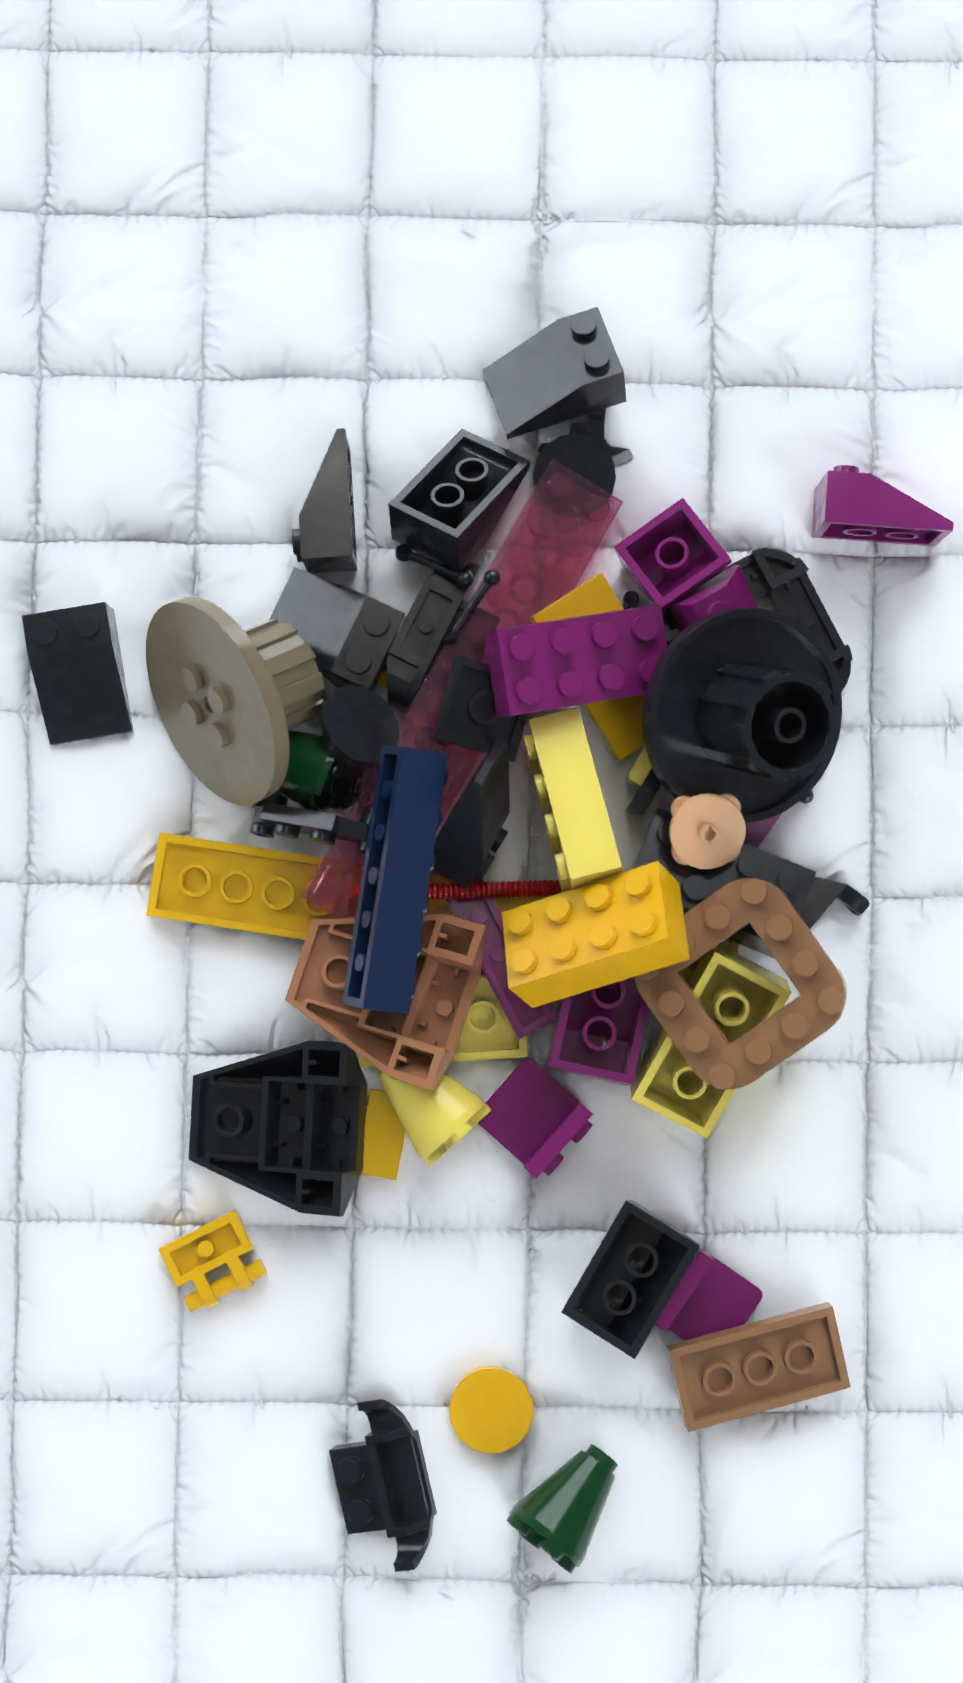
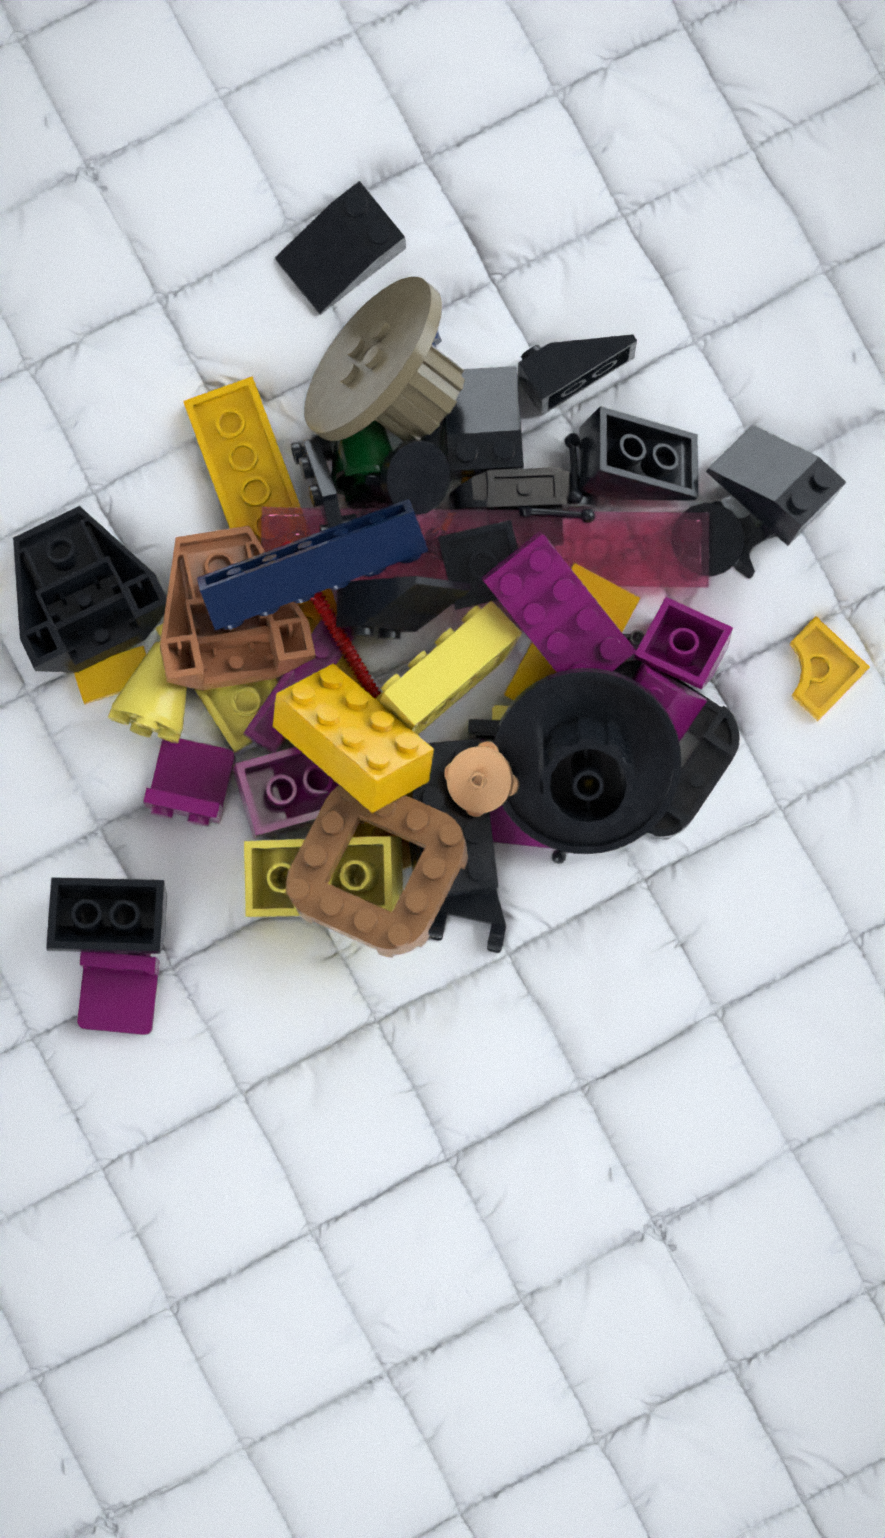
camera: 65 degrees right, 5 degrees down
(758, 1366) = (91, 1057): medium nougat plate -> none
(762, 433) = (826, 668): none -> yellow tile
(870, 510) = (804, 772): magenta slope -> none

